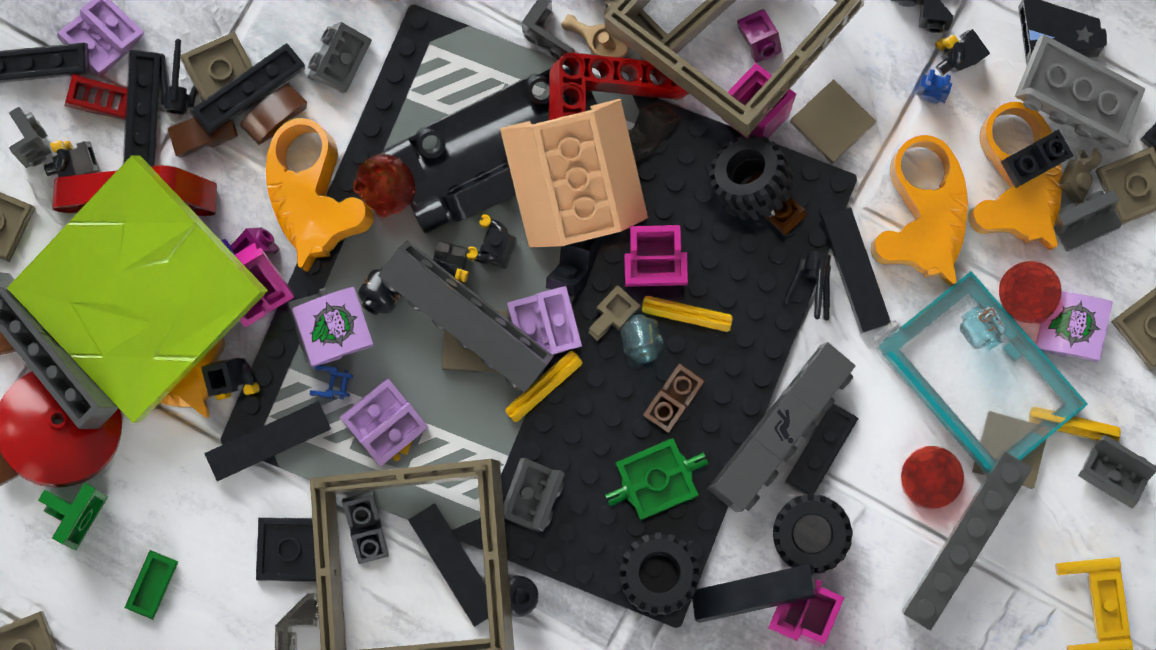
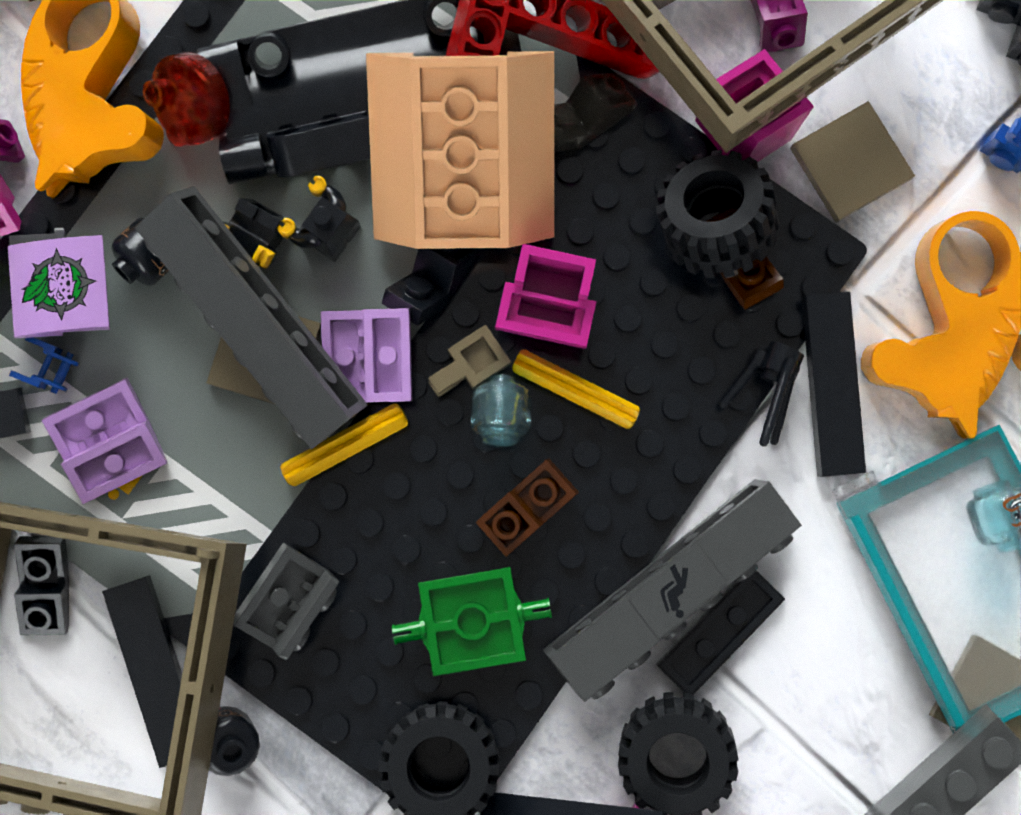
camera: 10 degrees right, 5 degrees up
(932, 477) = (870, 712): clear red tile -> none

